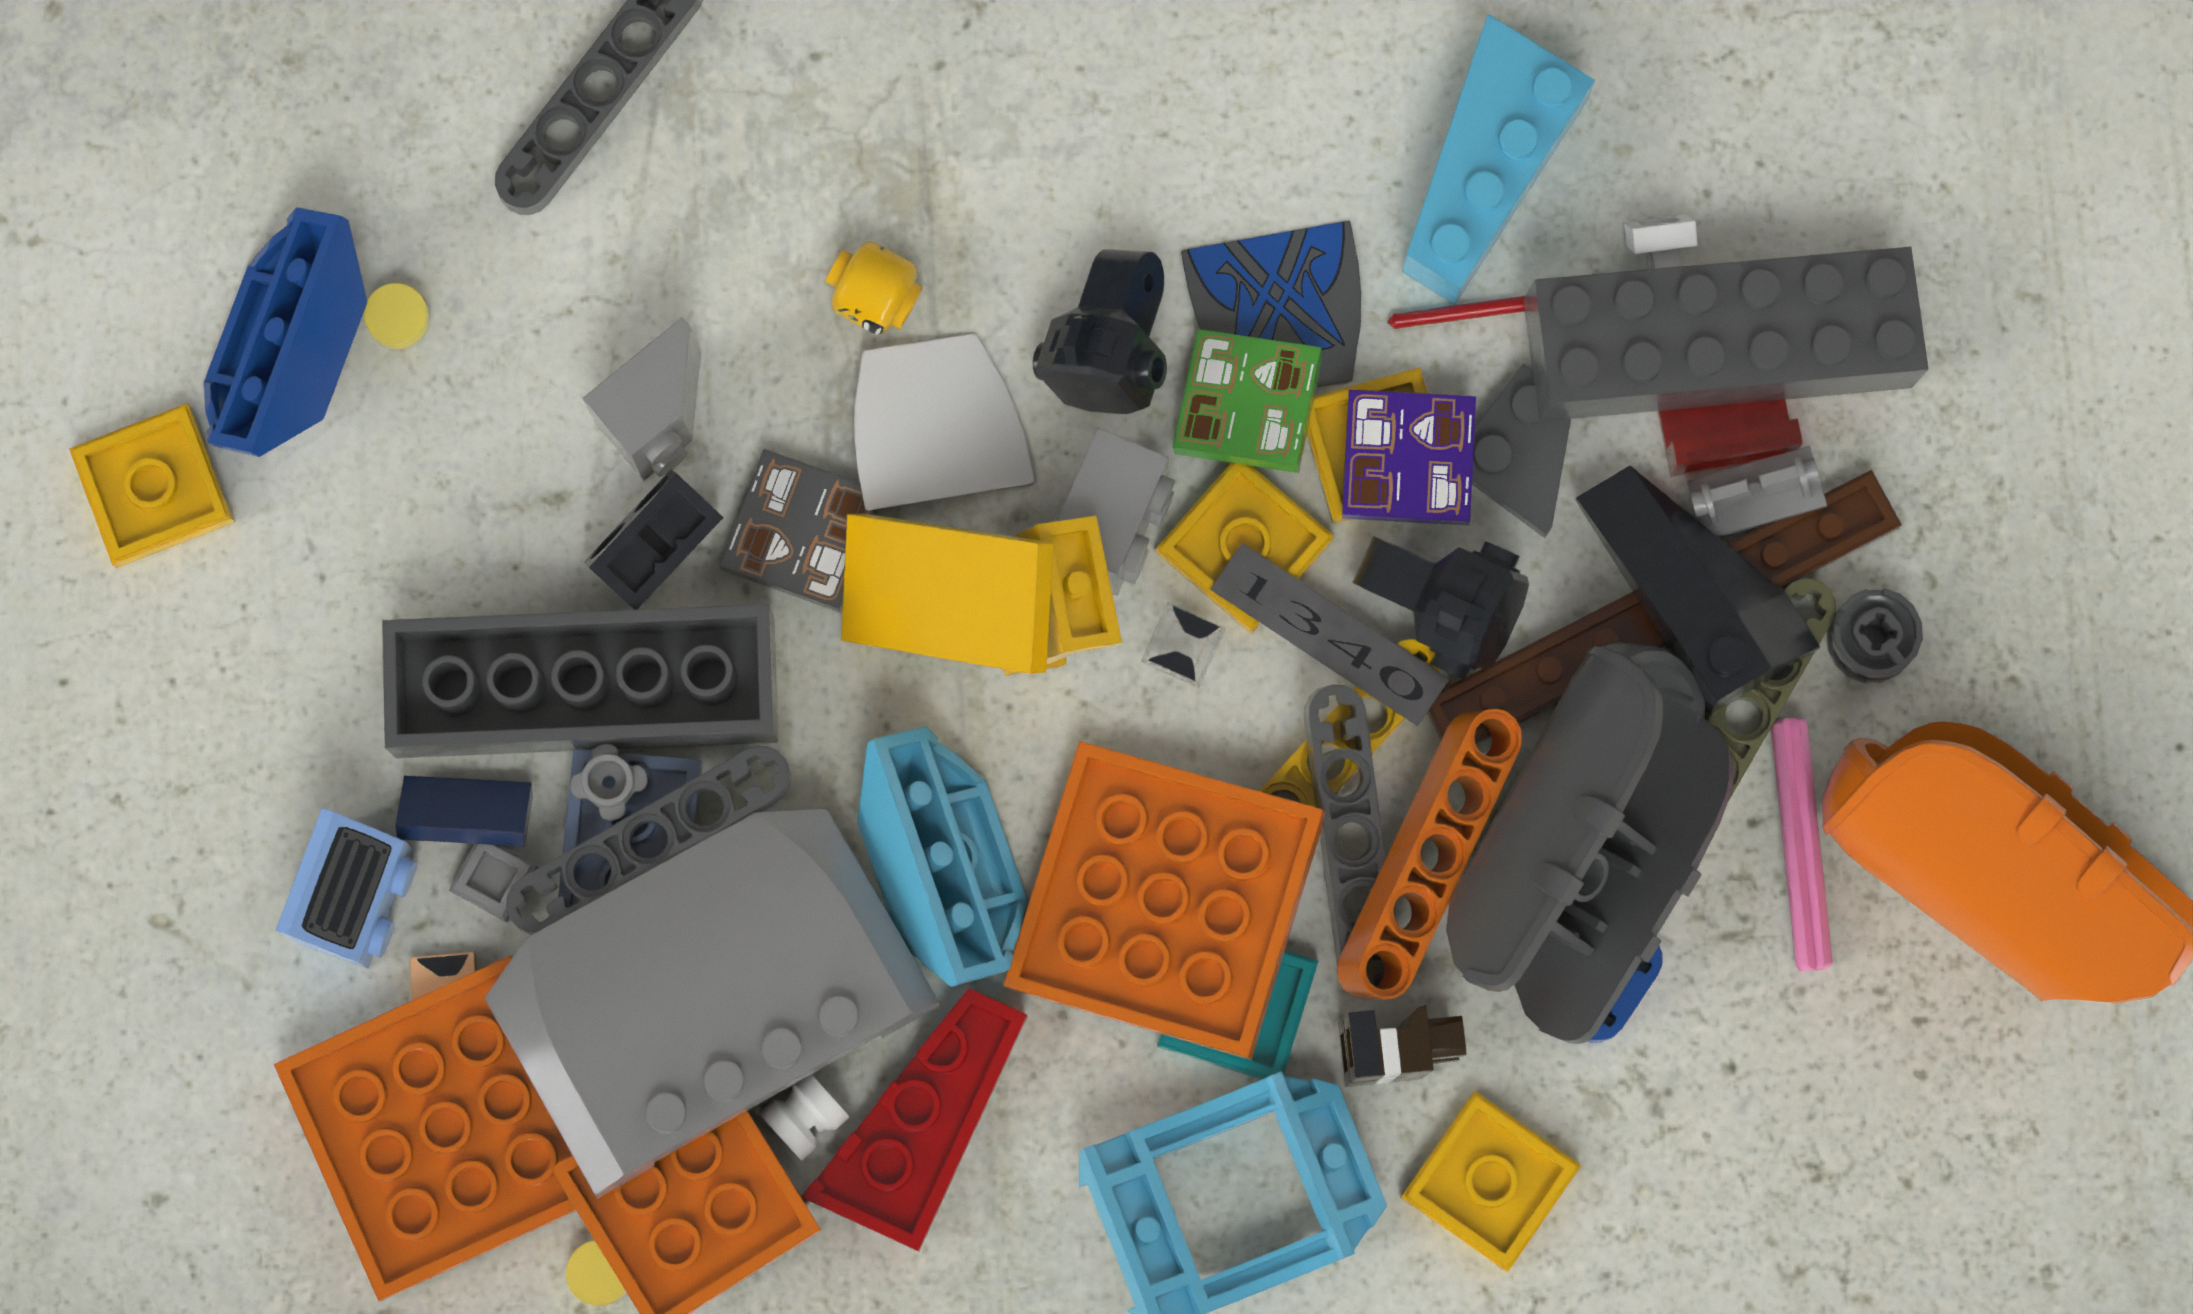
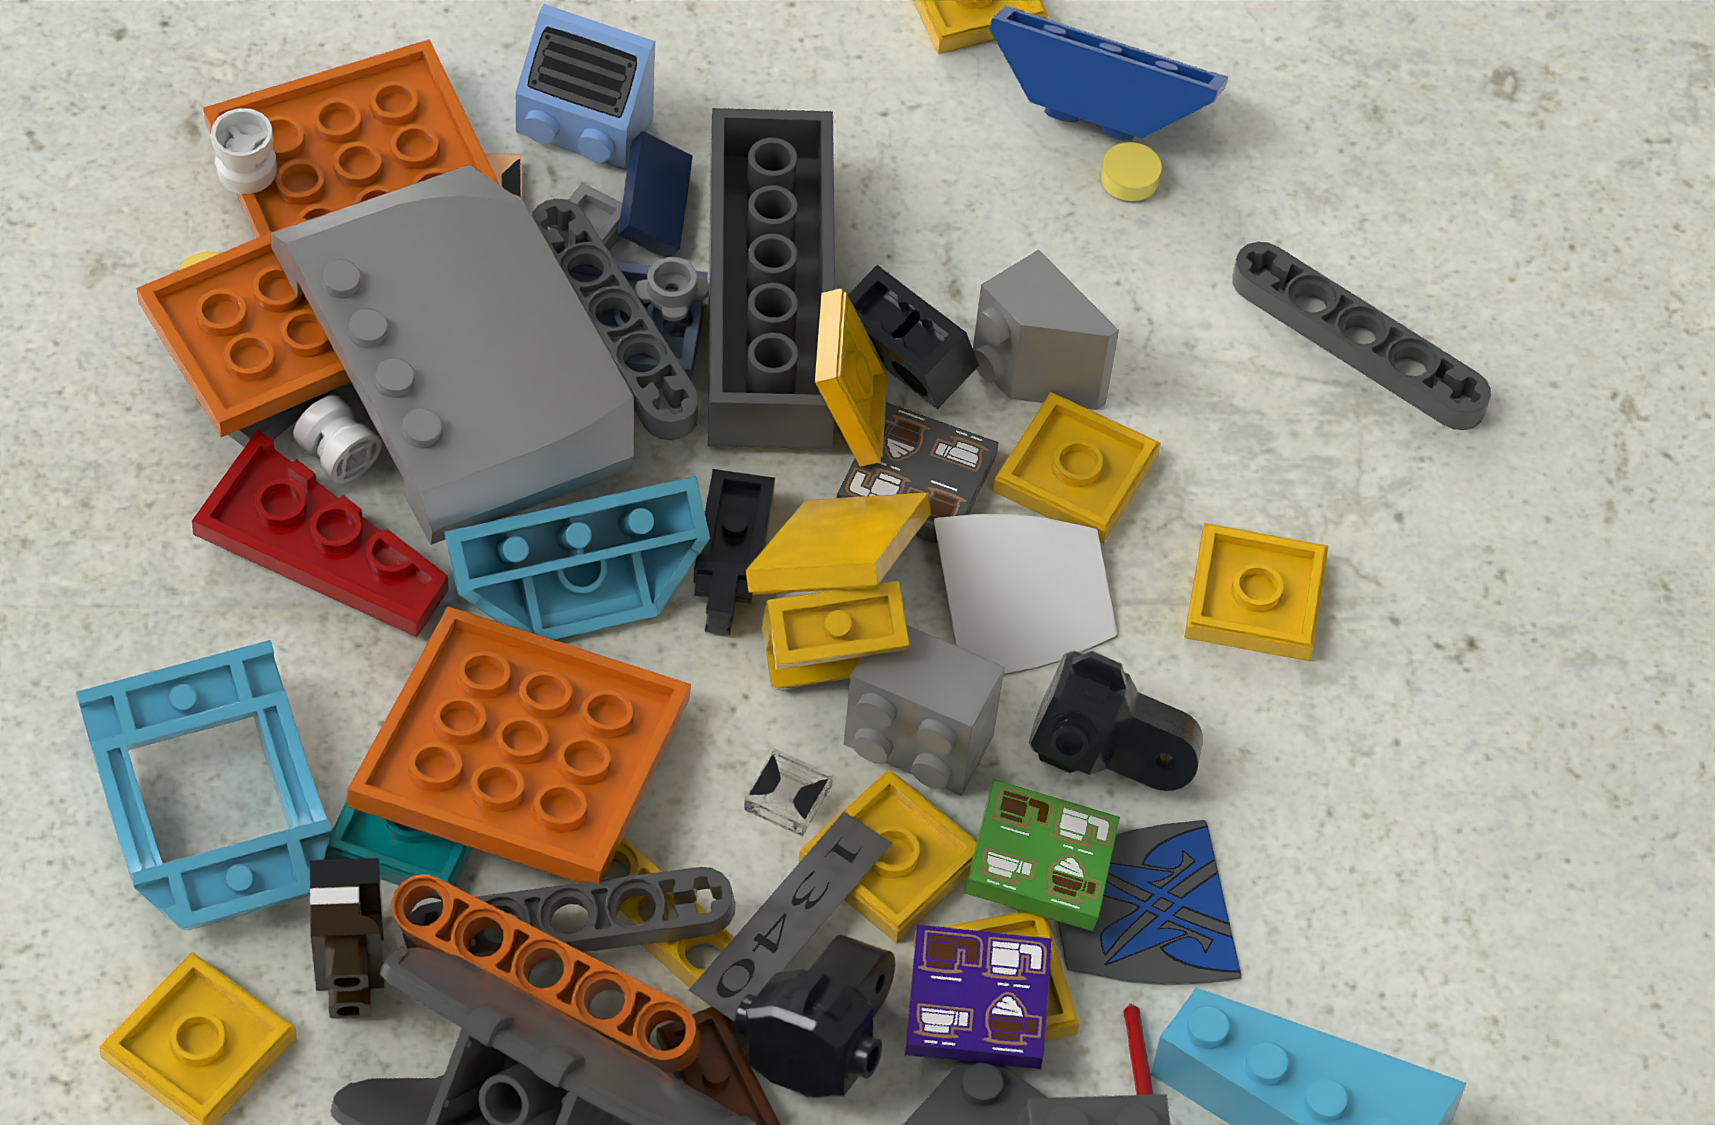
camera: 85 degrees right, 25 degrees down
(448, 1245) = (244, 151): none -> white wheel
(729, 590) = (851, 377): none -> yellow tile
(780, 372) = (1076, 466): none -> yellow tile
(873, 287) = (1160, 538): yellow head -> none
(882, 705) = (737, 526): none -> black hinge
(921, 195) = (1256, 592): none -> yellow tile

